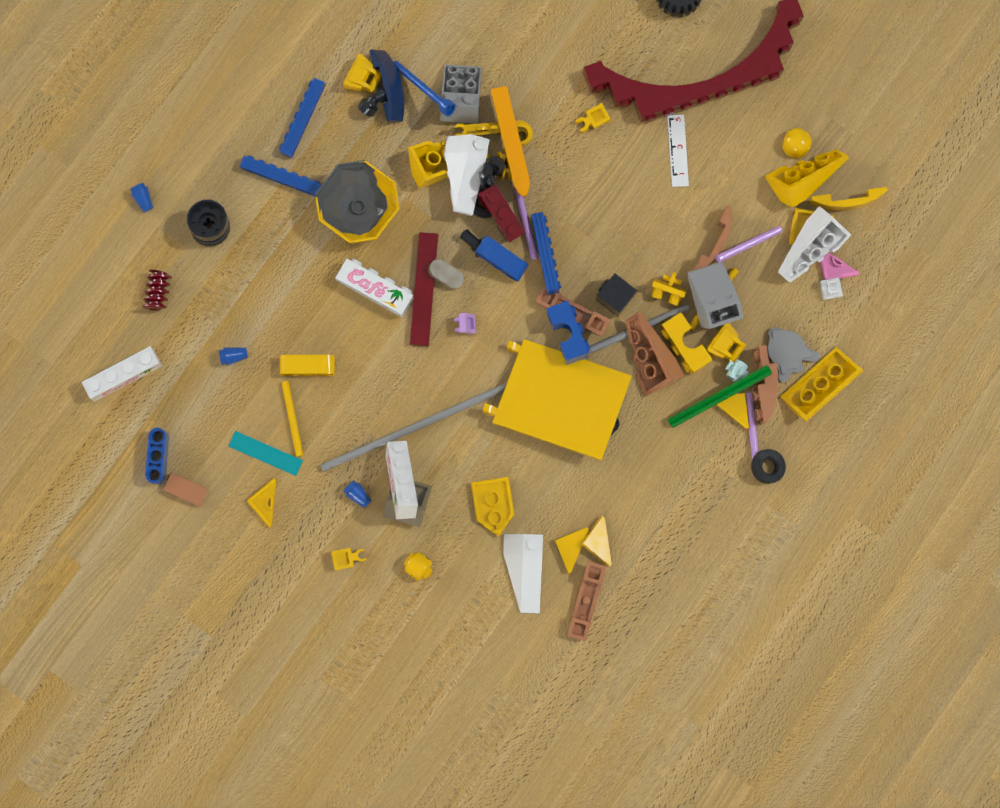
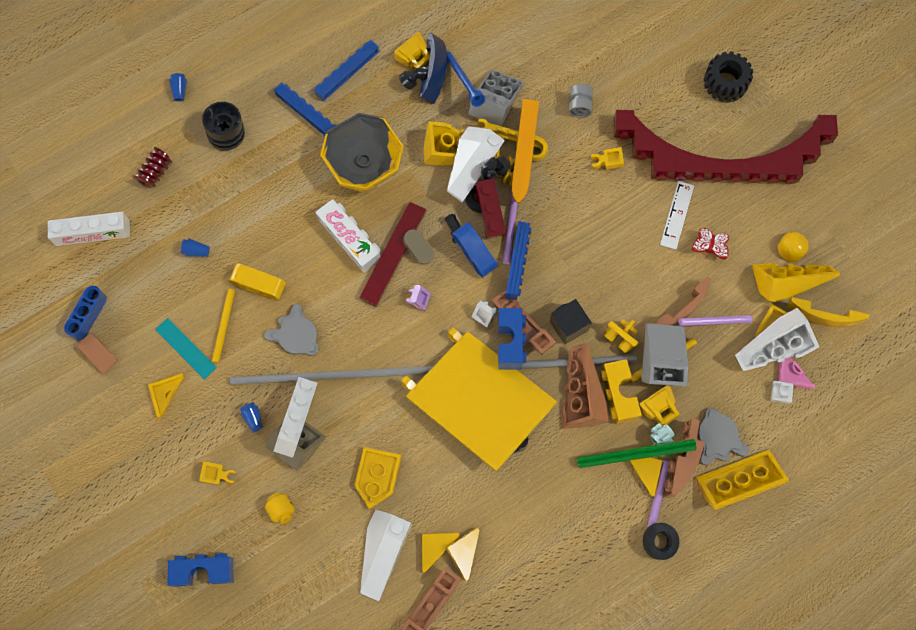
camera: 25 degrees right, 10 degrees down
(354, 653) = (182, 569): none -> blue arch
(364, 401) = (296, 333): none -> light grey tile
(533, 316) = (484, 313): none -> white tile
(545, 66) = (580, 98): none -> light grey wheel
(720, 168) = (712, 243): none -> animal

